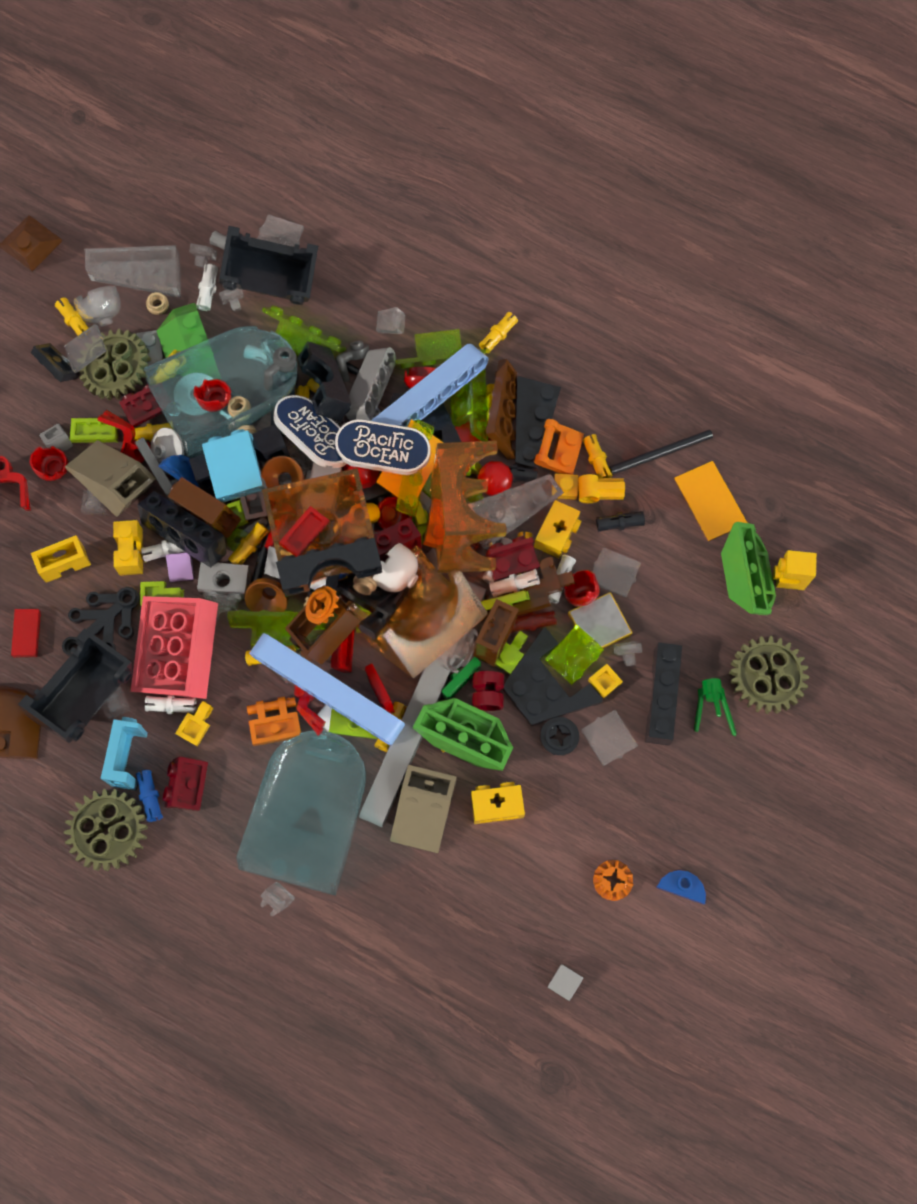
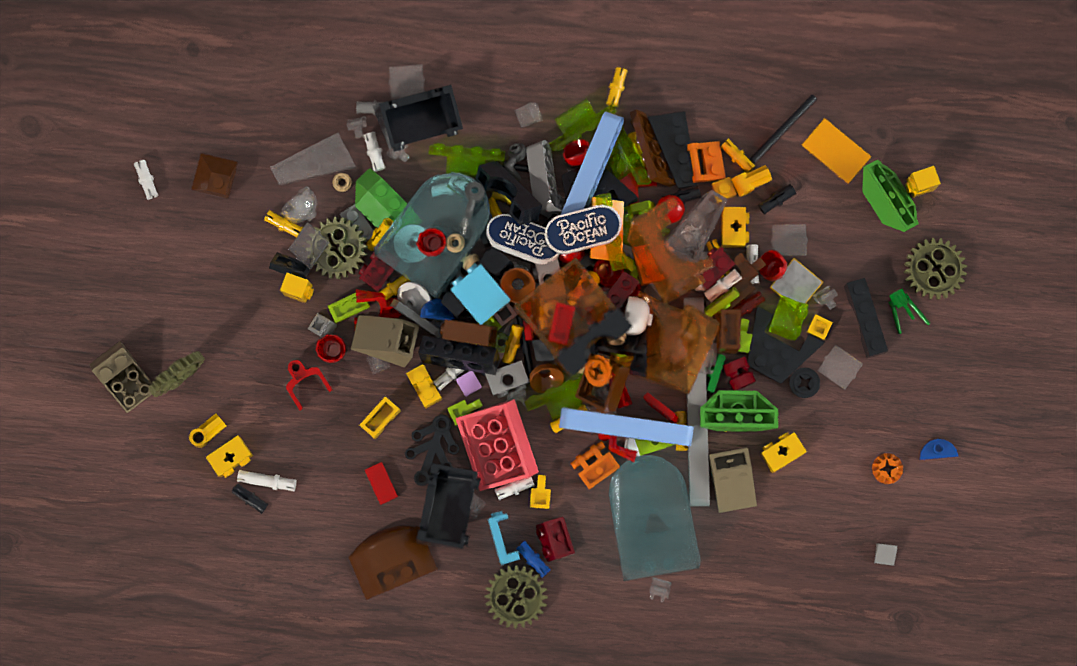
camera: 20 degrees left, 10 degrees up
(46, 383) = (297, 288): none -> yellow brick

